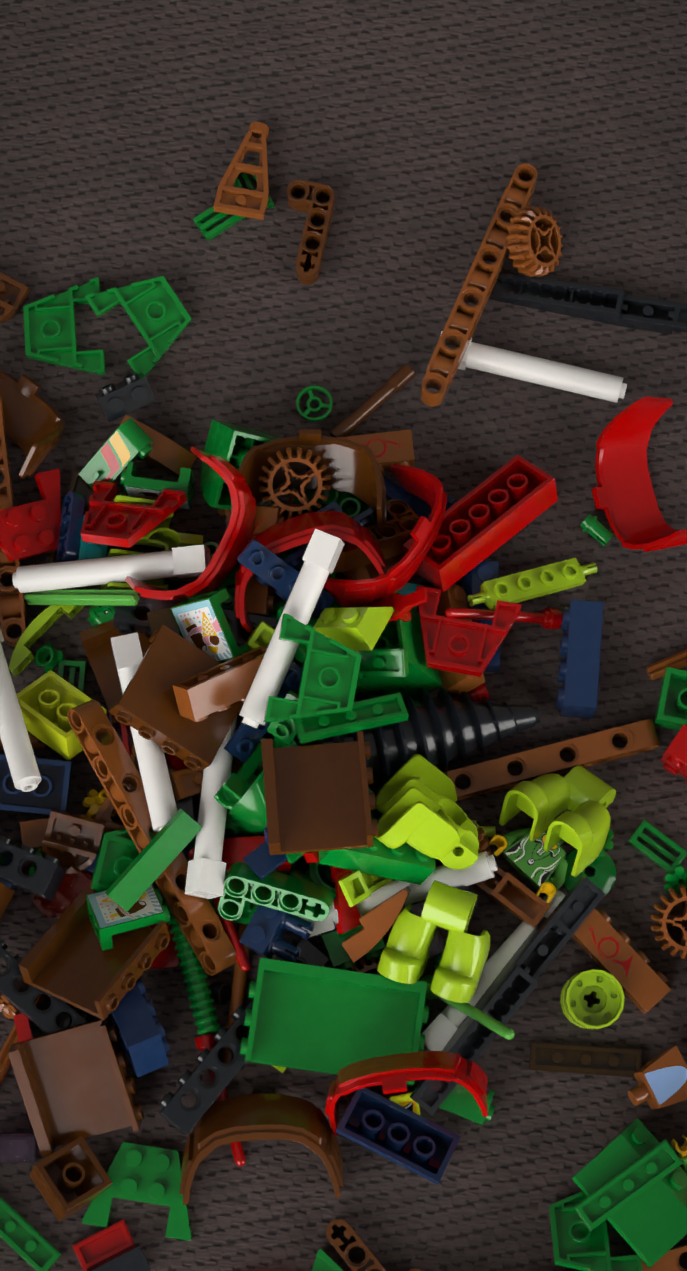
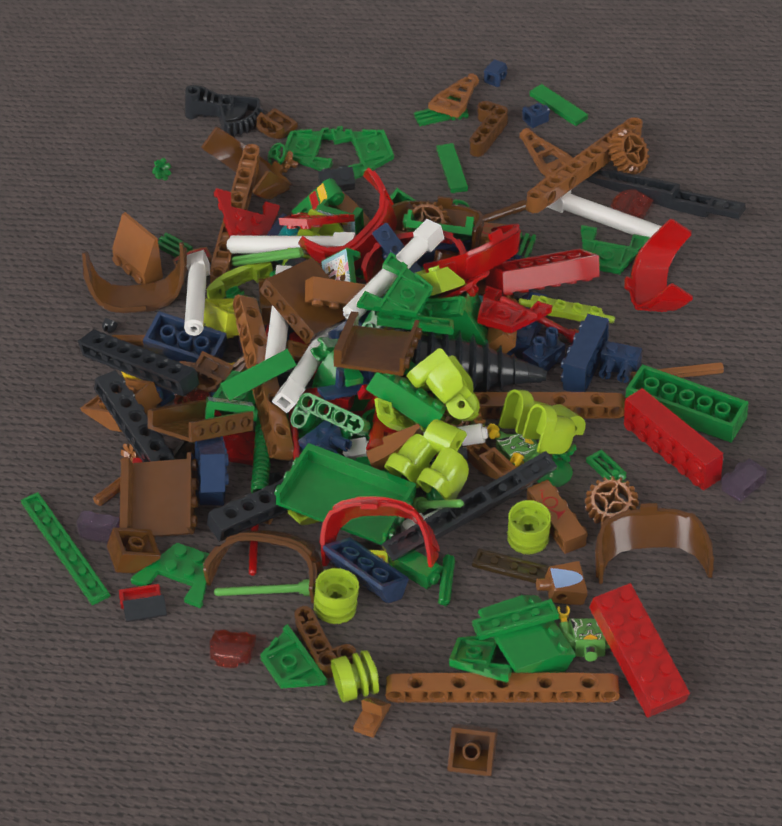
camera: 15 degrees right, 30 degrees down
(10, 360) = (275, 153): none -> green piece
(39, 369) = (288, 162): none -> dark orange plant
(282, 320) = (452, 168): none -> green tile
(290, 108) = (495, 73): none -> dark blue brick
(318, 1175) = (302, 588): none -> bright green piece
(325, 508) = (459, 232): none -> green panel
(372, 189) = (536, 114): none -> dark blue brick
(376, 1174) = (336, 595): none -> lime wheel
(399, 149) = (558, 105): none -> green tile
(429, 435) = (526, 237): none -> green tile
(437, 278) = (532, 141): none -> dark orange plate
(504, 1107) = (446, 580): none -> green axle
(520, 665) = (545, 350): none -> dark blue brick
(554, 447) = (612, 257): none -> green wing
(561, 338) = (632, 203): none -> clear red slope
(596, 530) = (619, 297): green pin -> none
(630, 648) = (619, 359): none -> dark blue brick

